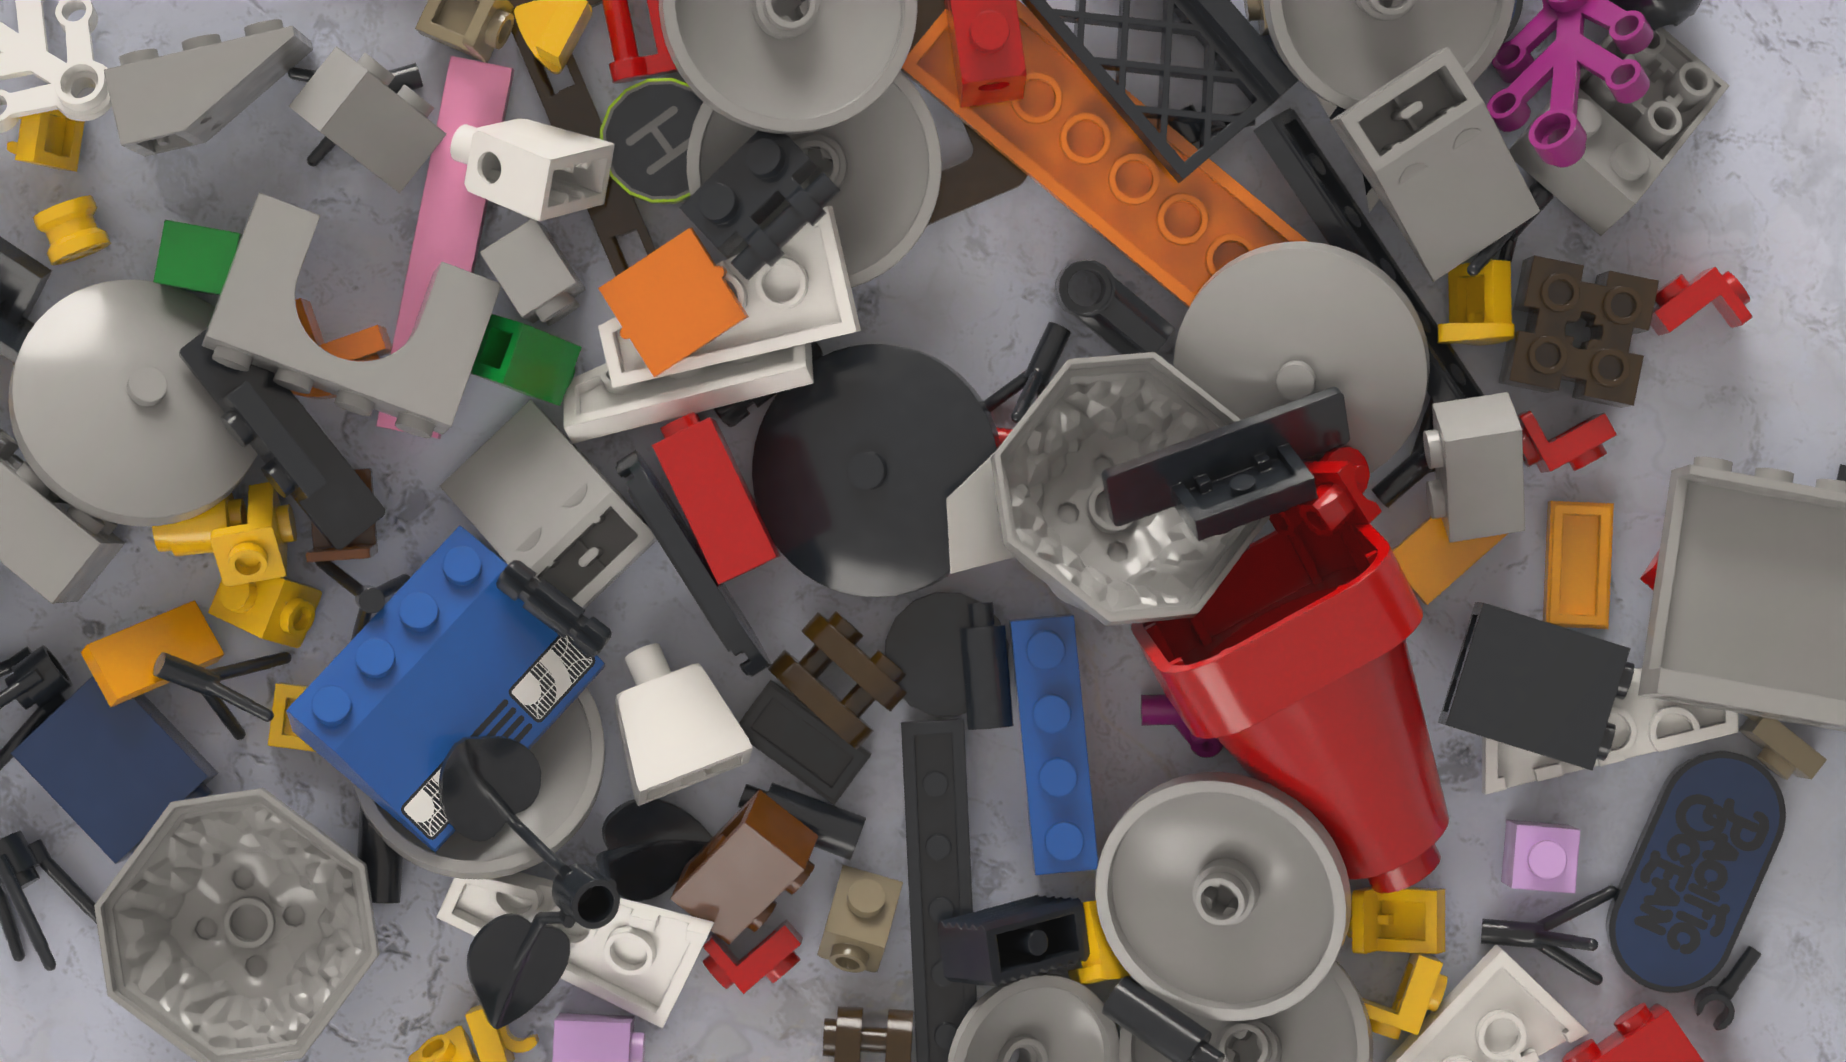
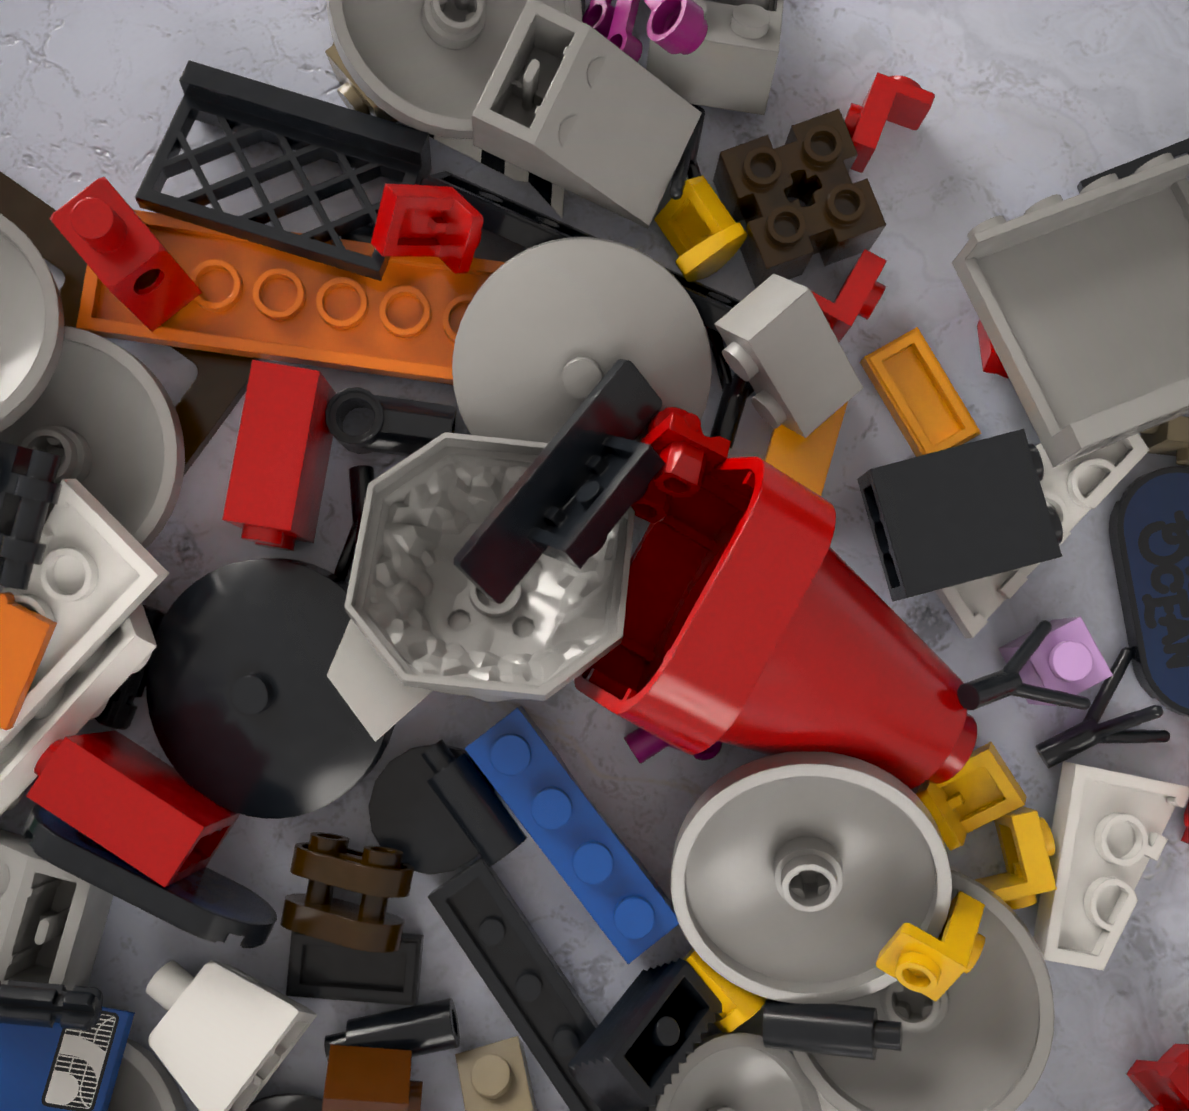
camera: 30 degrees left, 5 degrees down
(1007, 287) = (280, 456): none -> red brick
(1253, 166) = (427, 224): none -> red bracket
(1276, 1015) = (933, 963): none -> yellow bracket
(1484, 844) = (1008, 681): none -> black plant

